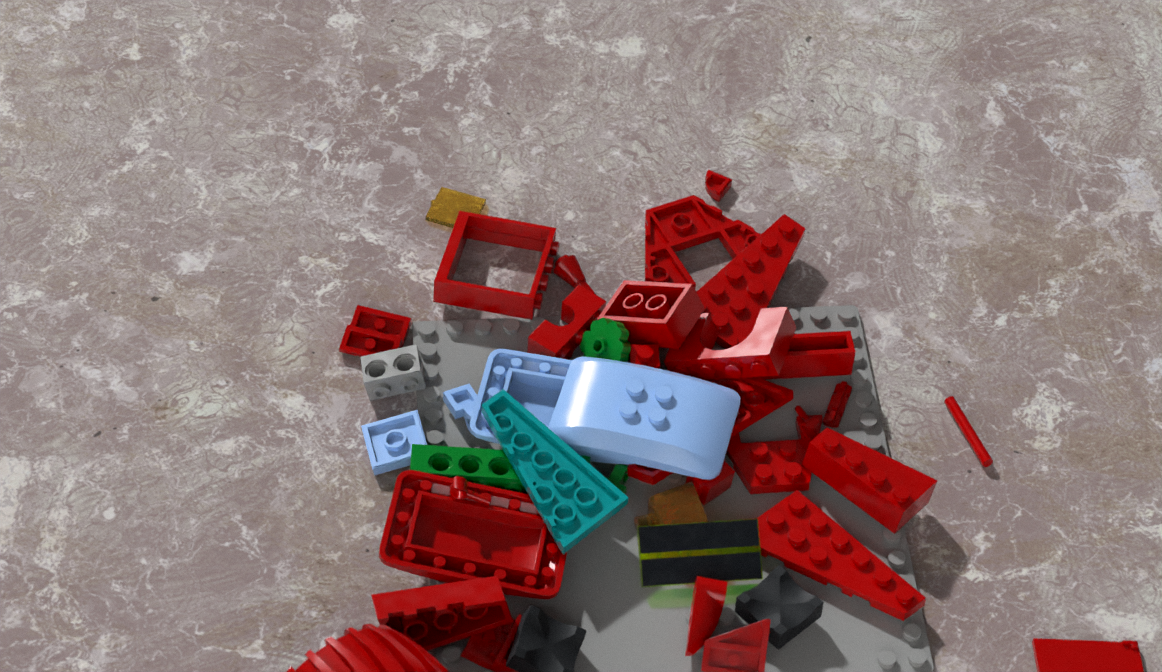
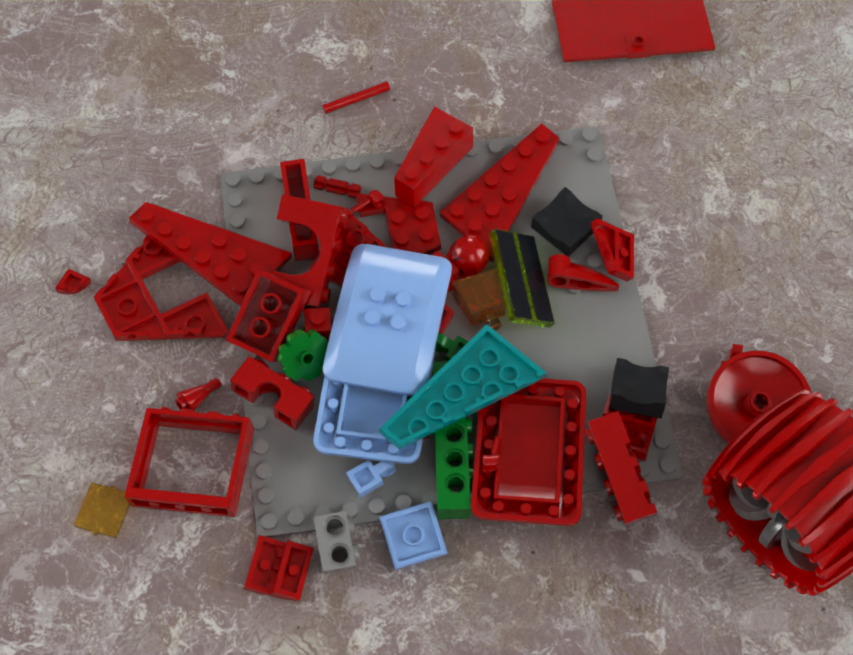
camera: 90 degrees left, 15 degrees up
(730, 502) = (469, 255): none -> red helmet

